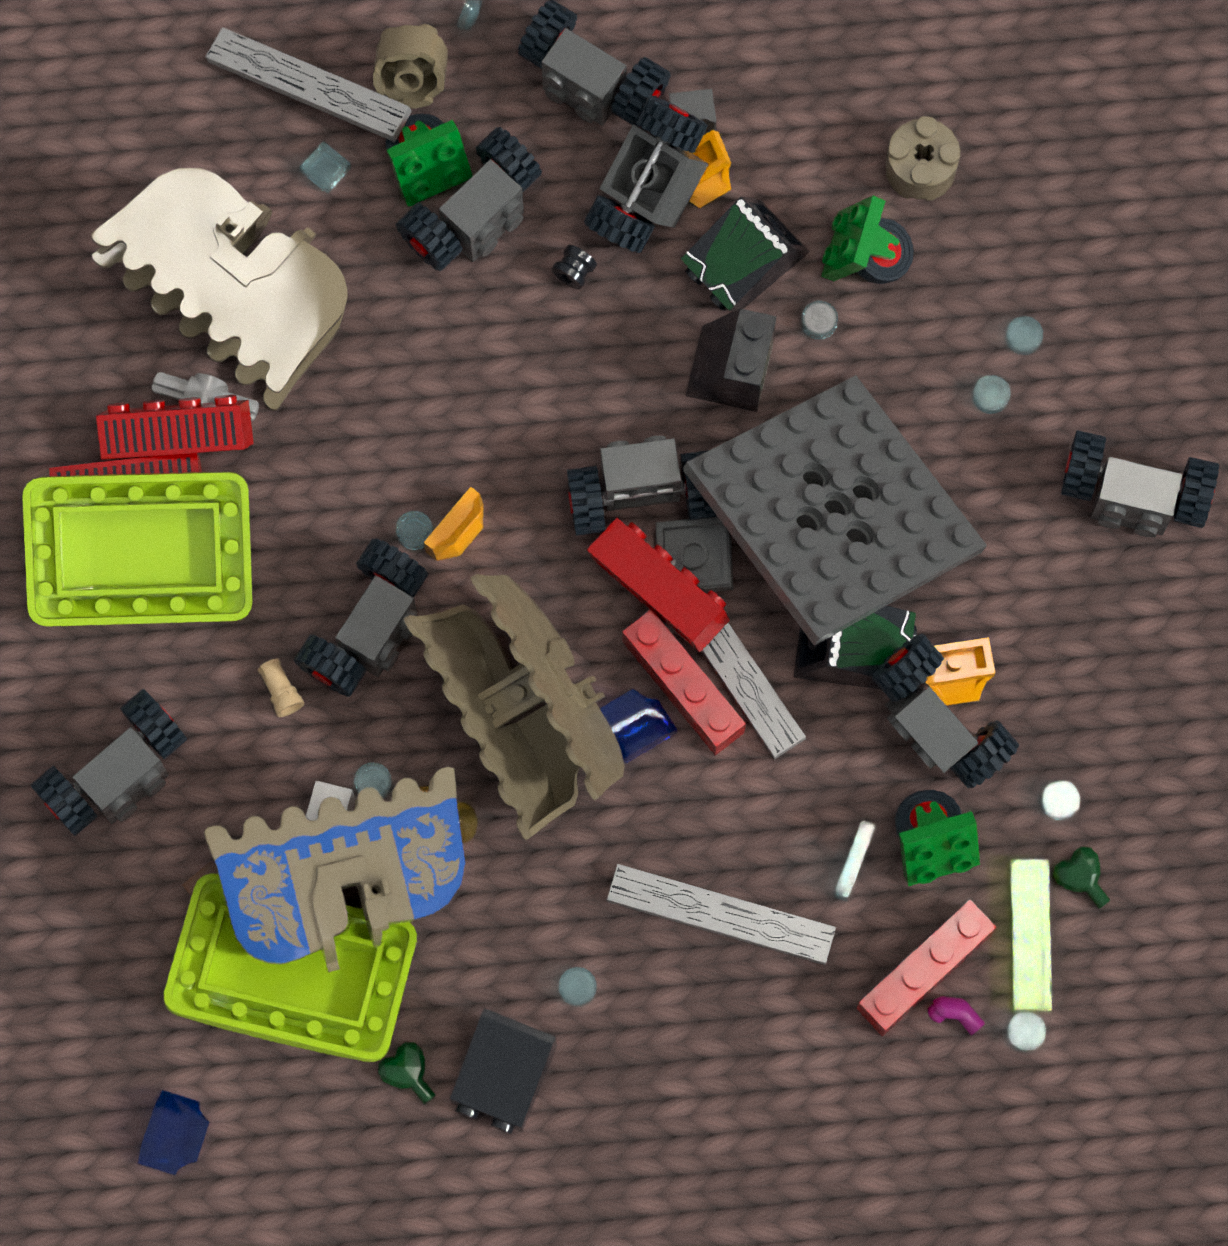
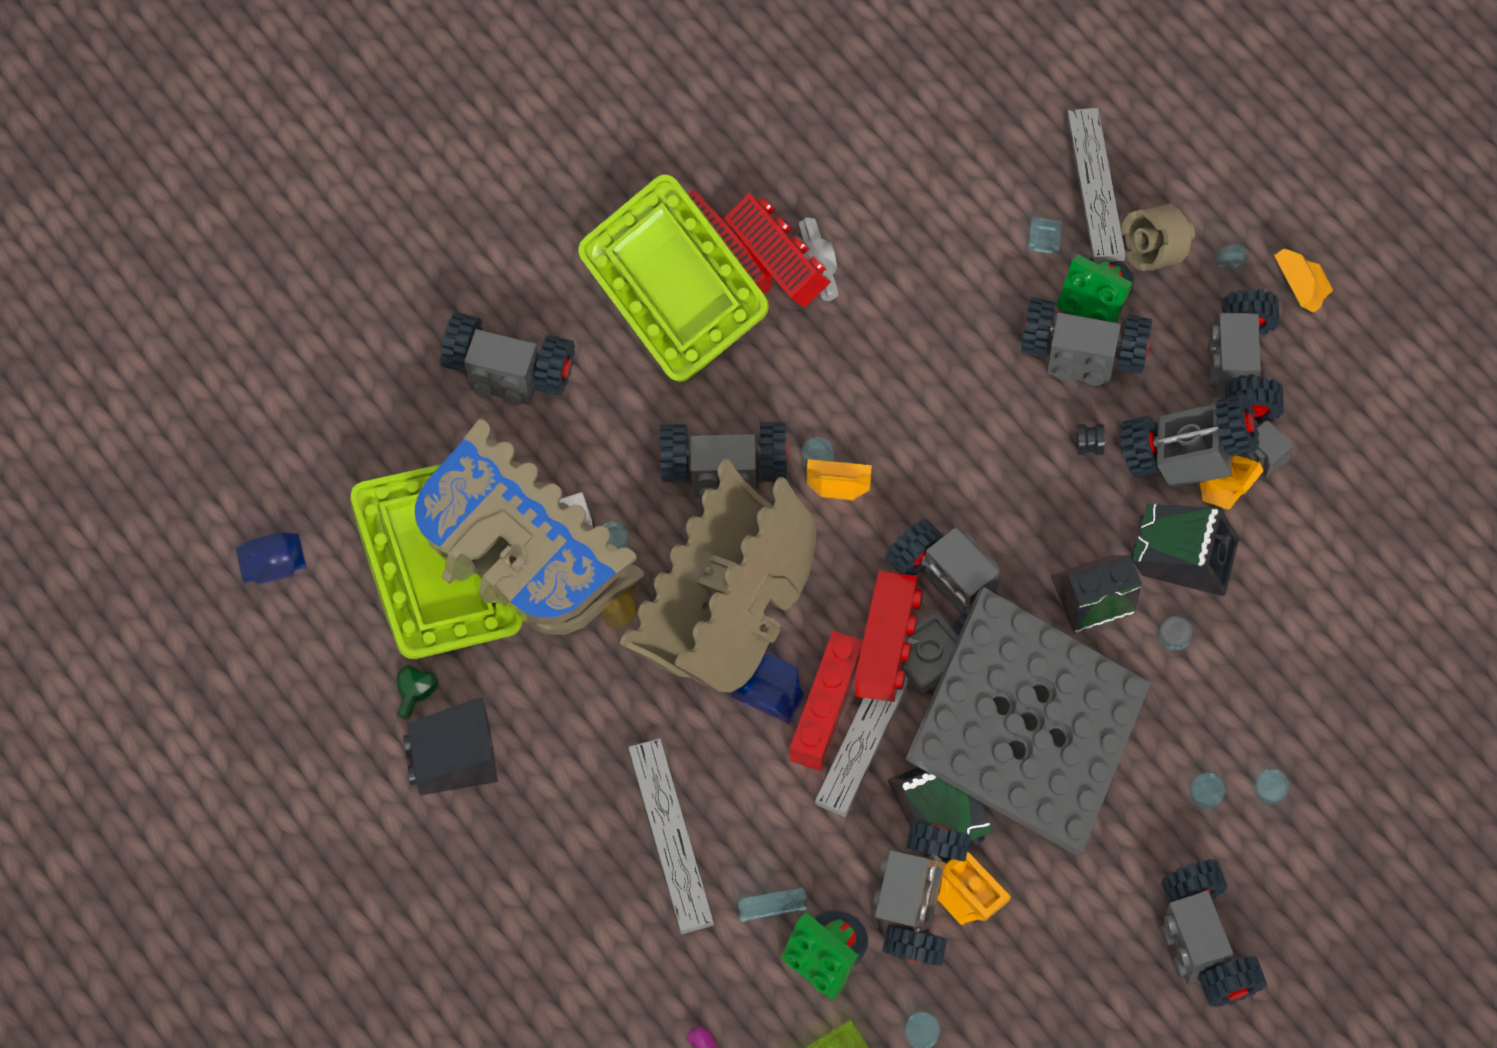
camera: 60 degrees right, 10 degrees down
(190, 246) = (915, 202): animal -> none
(284, 696) = (635, 441): tan pin -> none
(577, 987) = (551, 767): clear light blue tile -> none
(867, 245) = (1257, 636): green plate -> none
(925, 140) = (1356, 611): dark tan brick -> none
(926, 968) = (722, 1004): brick -> none

